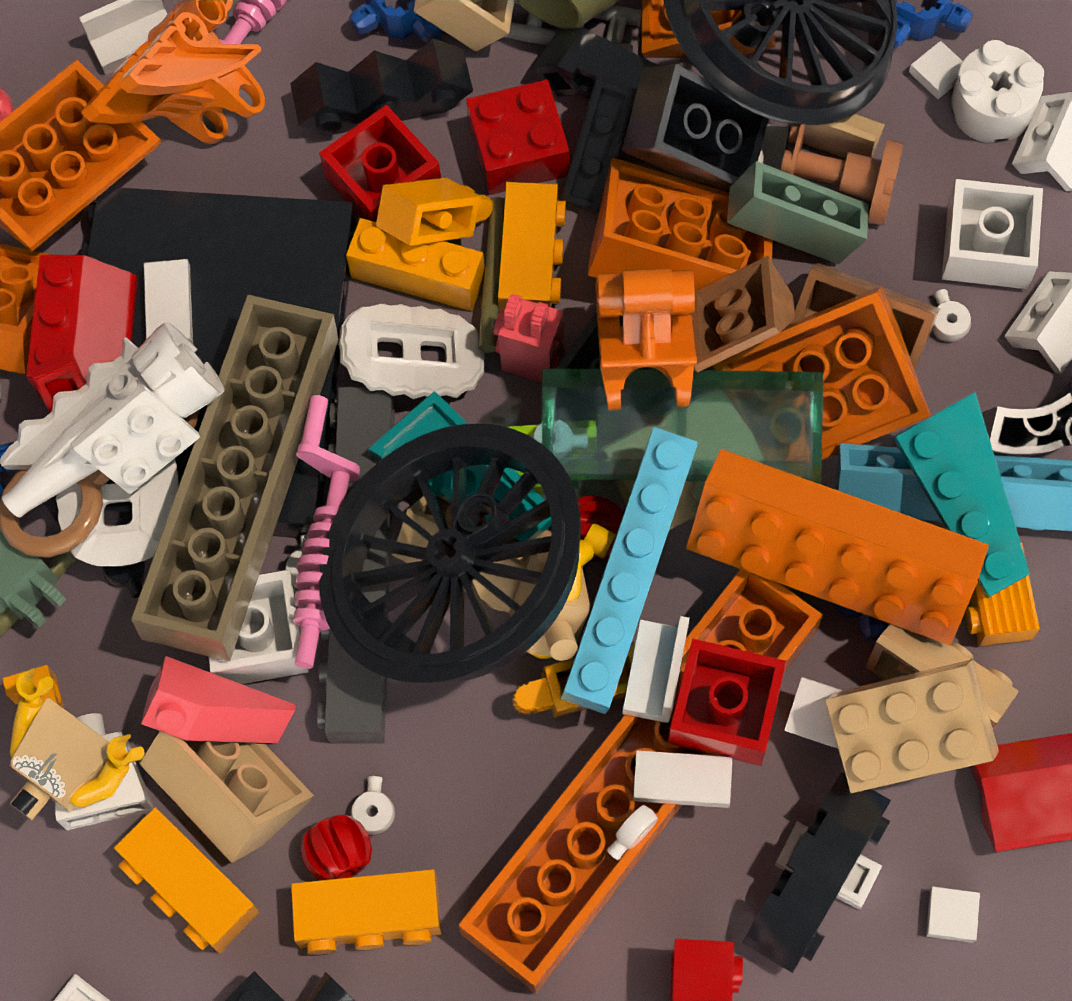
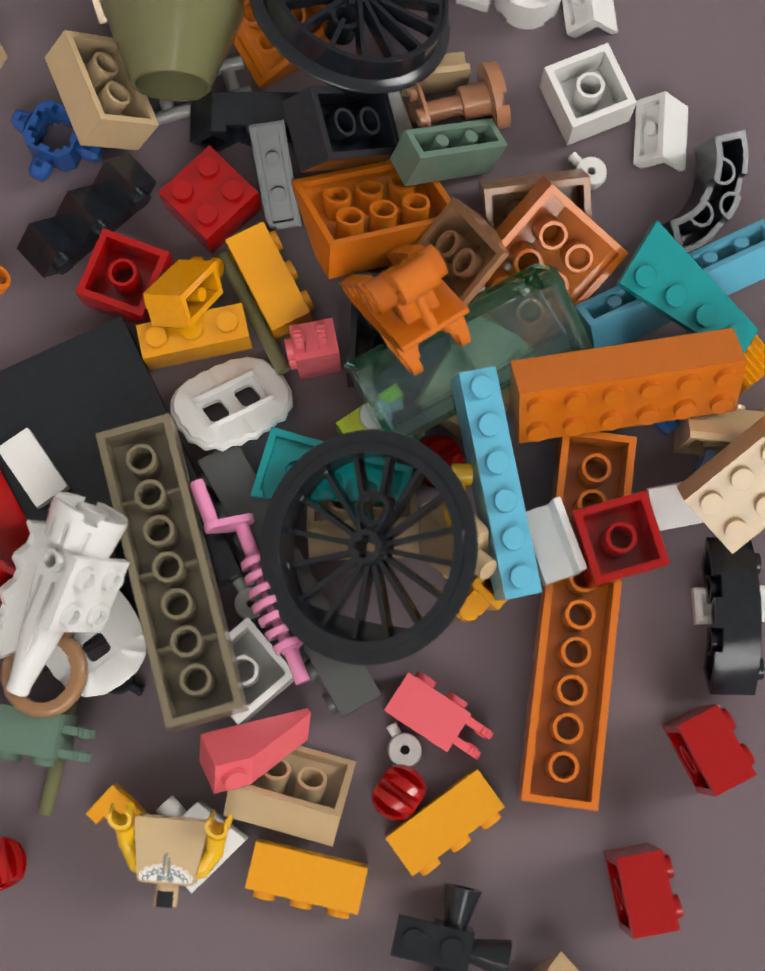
camera: 35 degrees left, 10 degrees up
(424, 789) = (433, 714): none -> coral hinge
(633, 831) = (603, 666): white piece -> none
(682, 779) = (613, 609): white tile -> none

